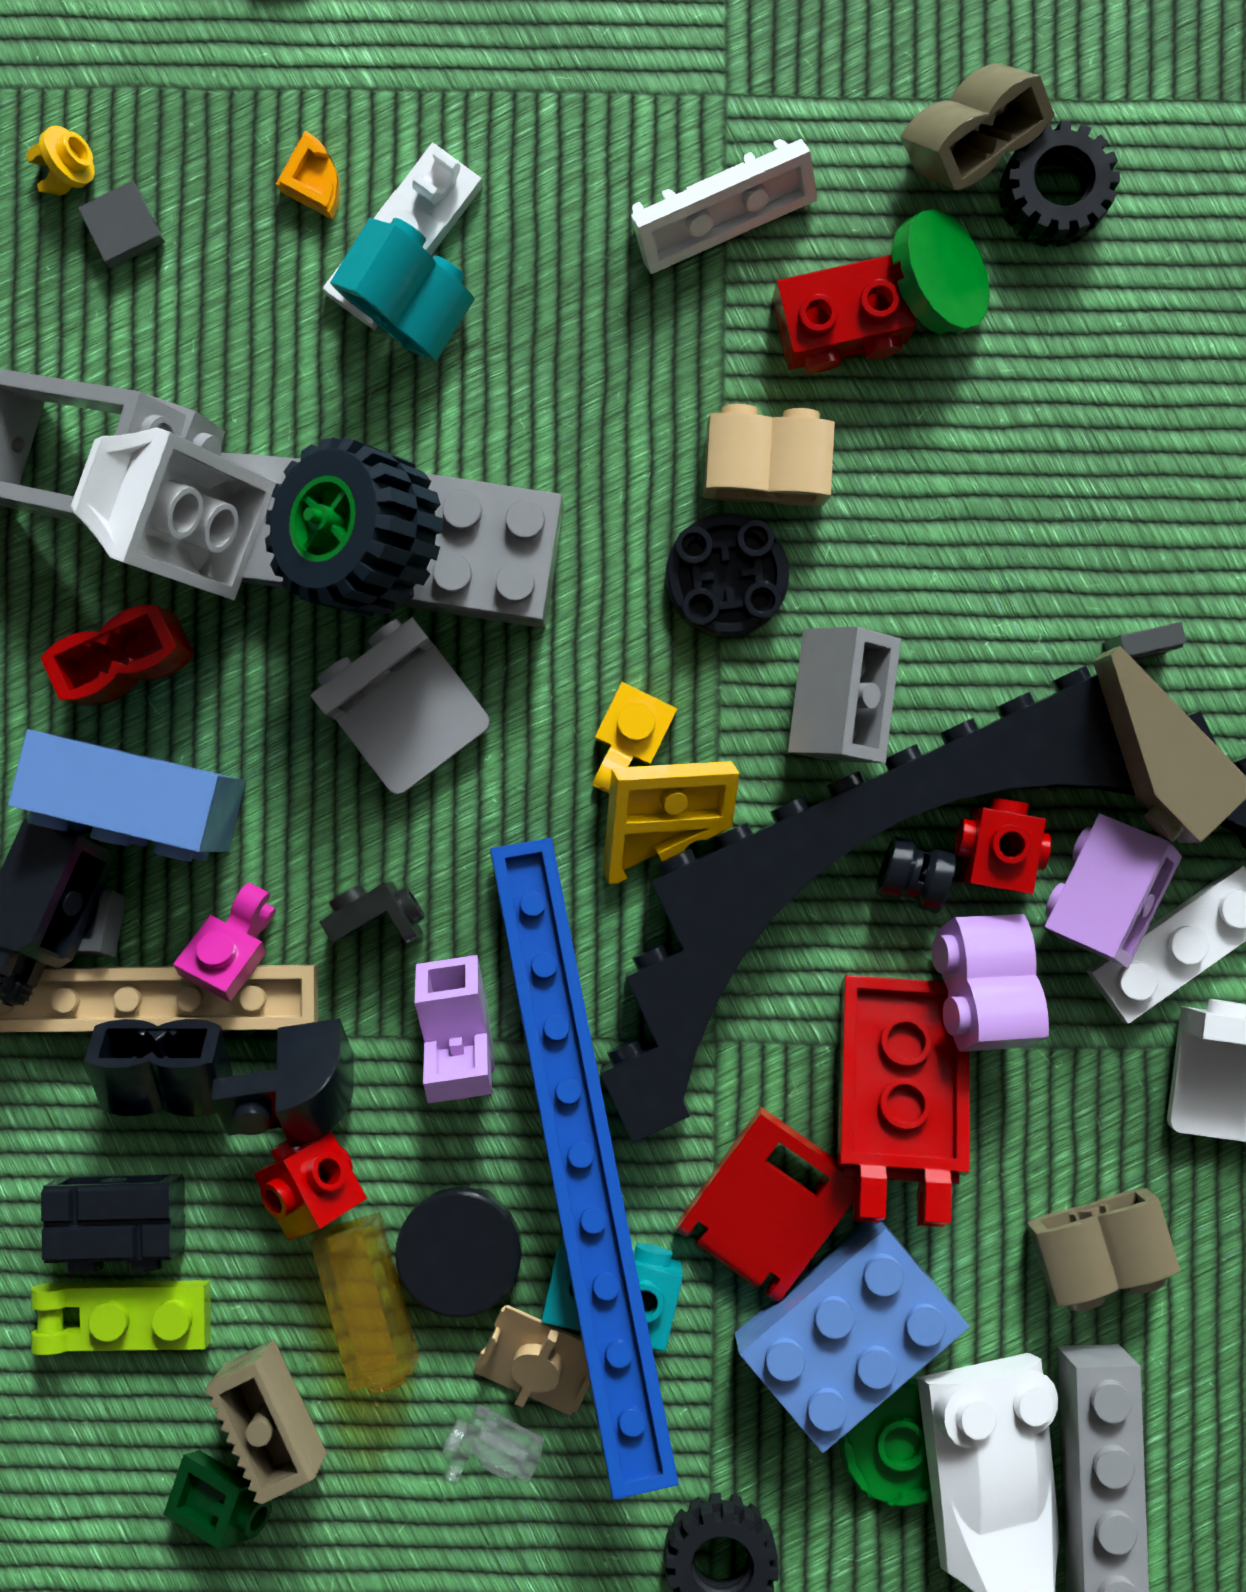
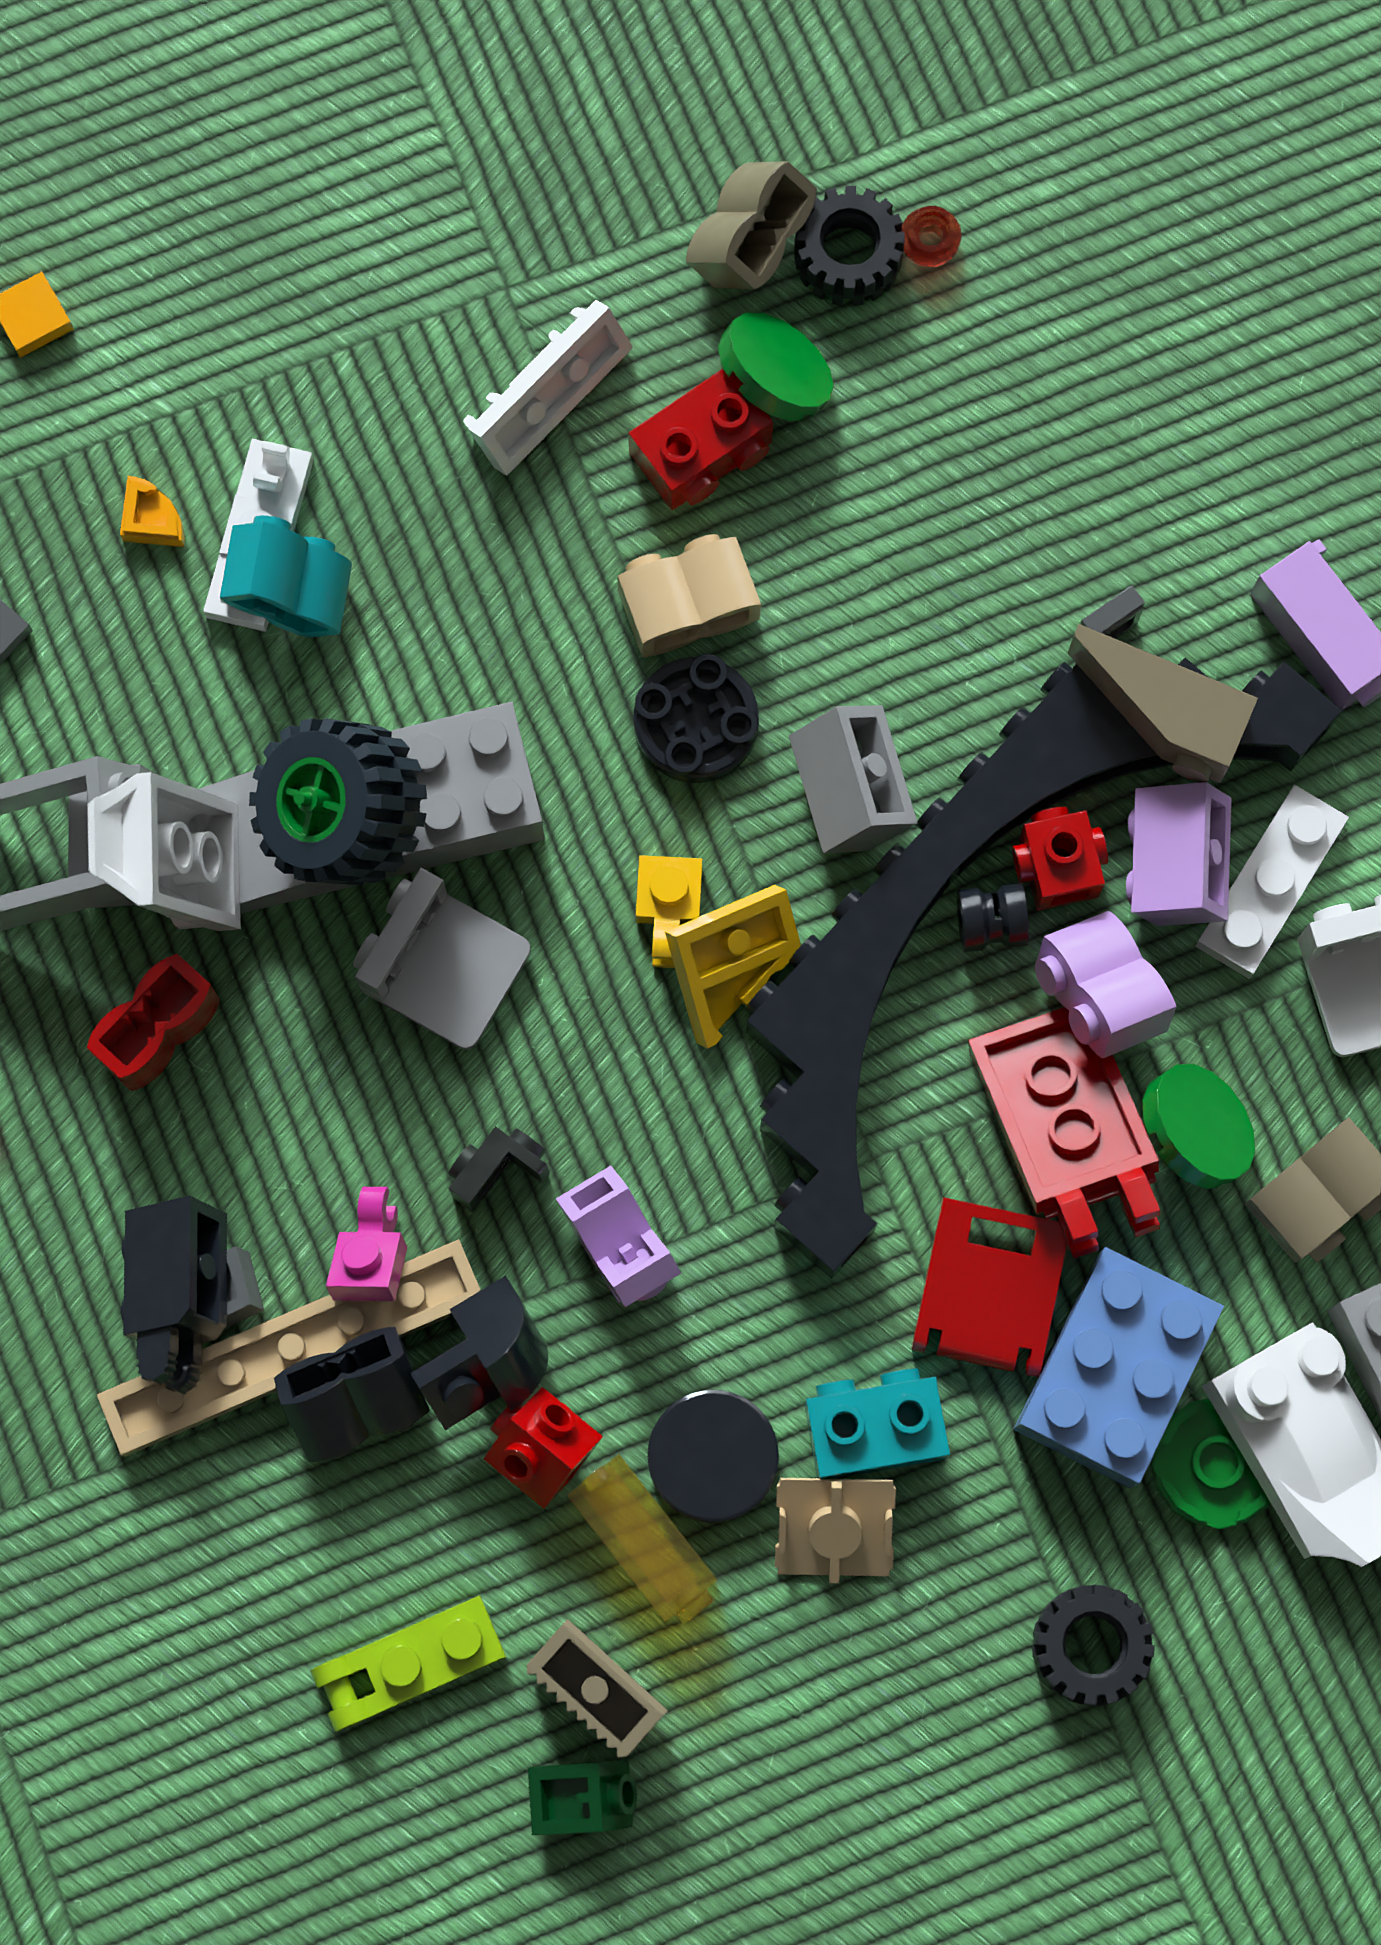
camera: 25 degrees left, 10 degrees down
(113, 1220) = (365, 1565): black brick -> none
(125, 797) = (219, 1143): medium blue brick -> none
(500, 1443) = (835, 1625): clear bracket -> none
(583, 1172) = (796, 1308): blue plate -> none
(1018, 1146) = (1199, 1126): none -> green tile
(1152, 196) = (931, 220): none -> clear red plate

